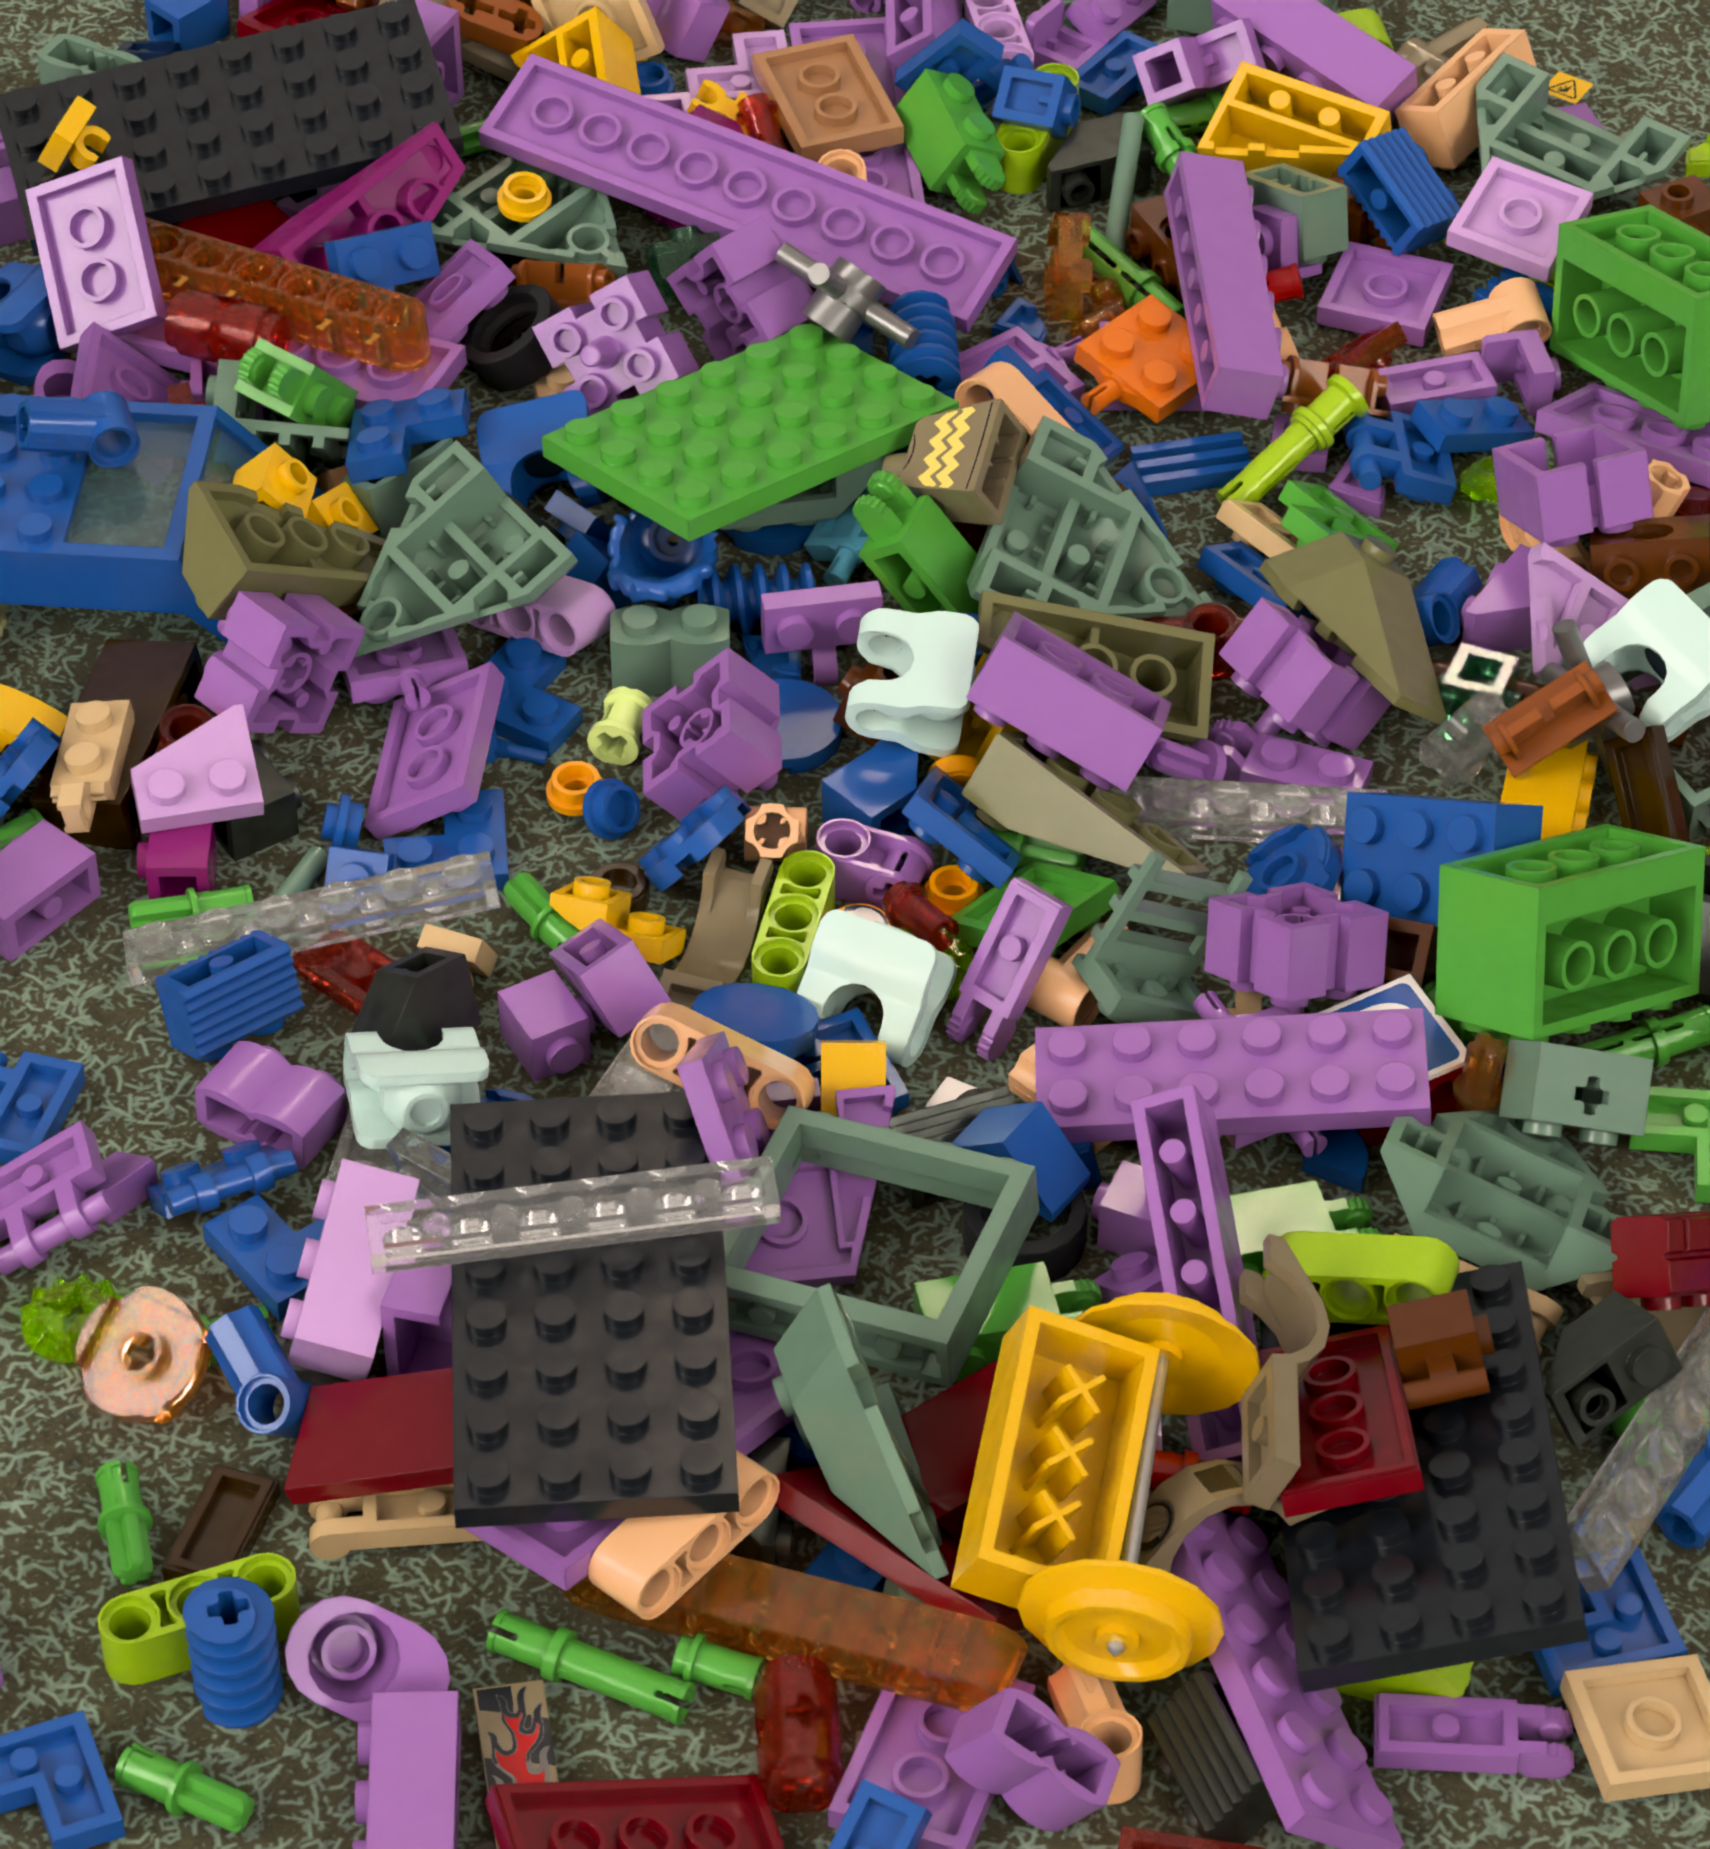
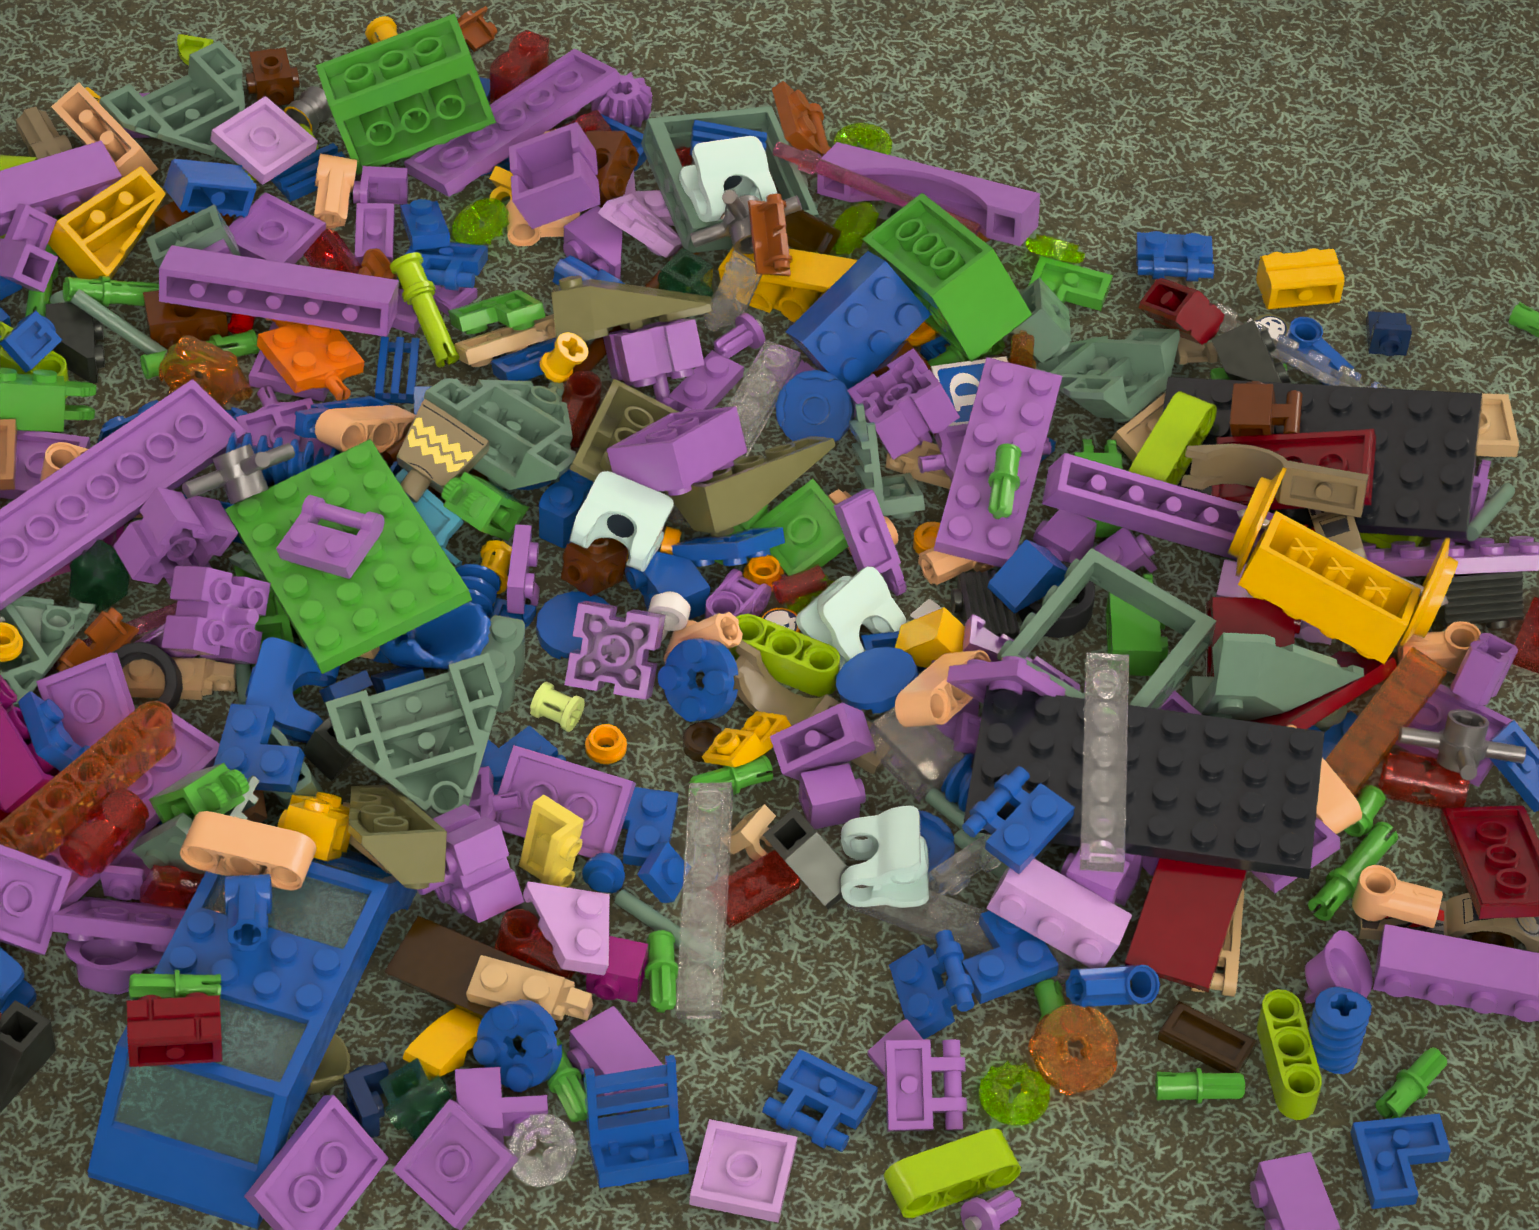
camera: 80 degrees left, 5 degrees up
(178, 415) = (247, 847): none -> light nougat beam
(229, 995) = (766, 953): blue brick -> none
(267, 1099) = (859, 952): medium lavender brick -> none
(338, 749) = (551, 843): none -> light yellow bracket
(440, 1162) = (1028, 828): none -> blue plate
(516, 1703) = (1383, 895): none -> light nougat piece
(610, 808) = (636, 726): blue plate -> none
(733, 383) = (329, 548): none -> medium lavender plate
(800, 779) = (674, 607): none -> white plate
(840, 1733) = (1462, 743): none -> flat silver bar
(1156, 1062) = (1004, 480): none -> bright green axle
(1249, 570) = (568, 352): none -> yellow bush
(1404, 778) = (746, 333): none -> medium lavender piece
(1434, 1758) = (1490, 511): none -> sand green bar

